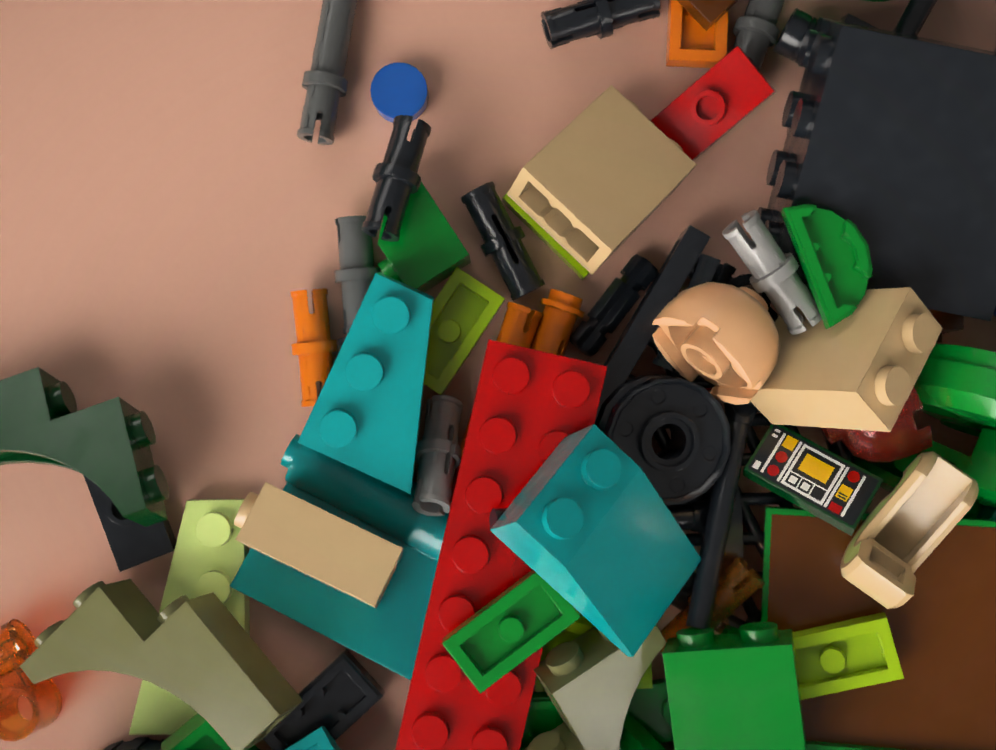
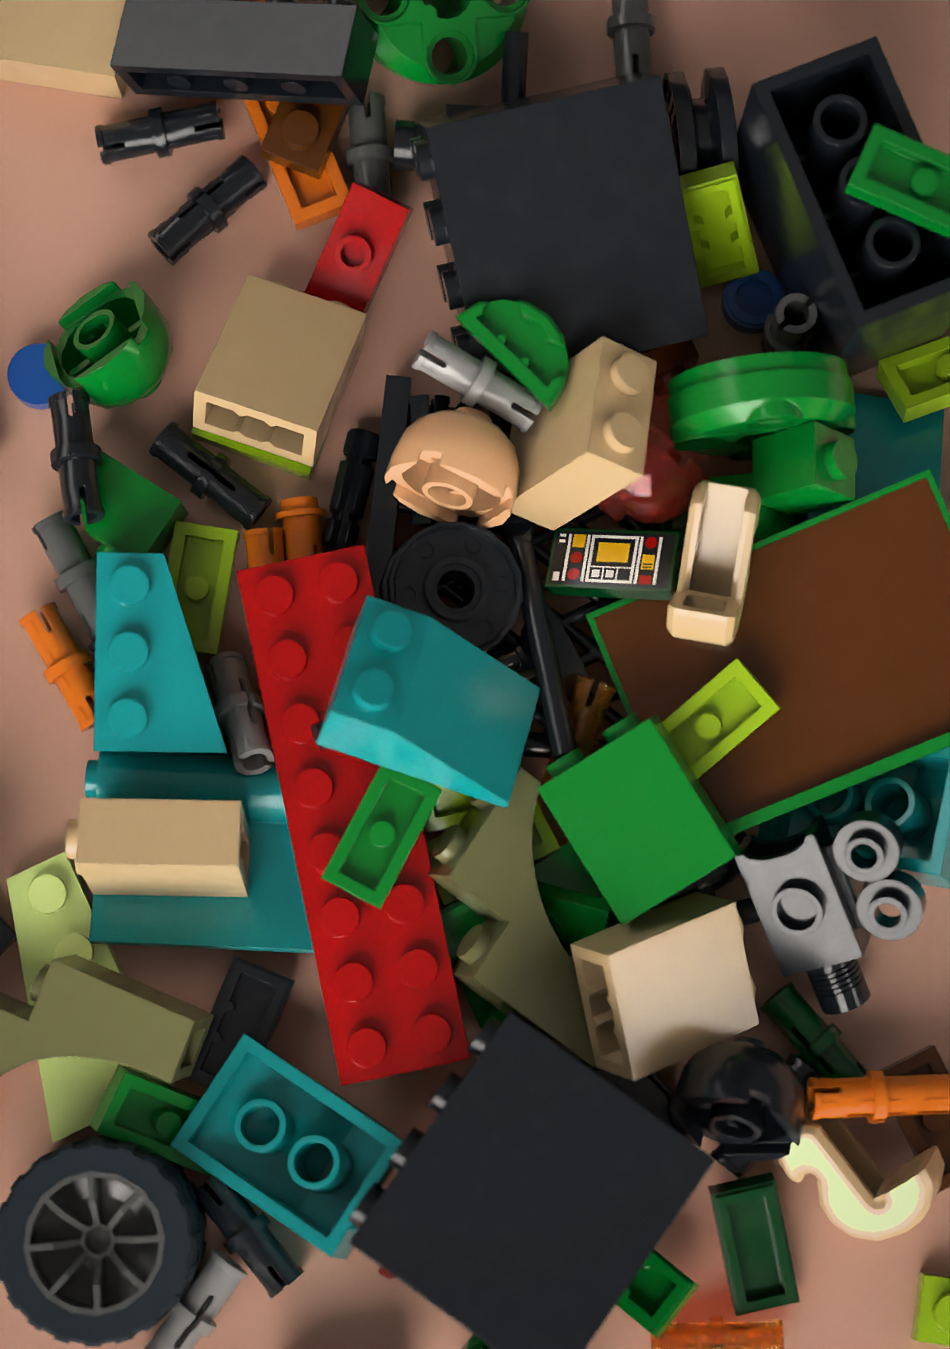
camera: 30 degrees left, 5 degrees down
(469, 95) = (111, 346): none -> green cylinder

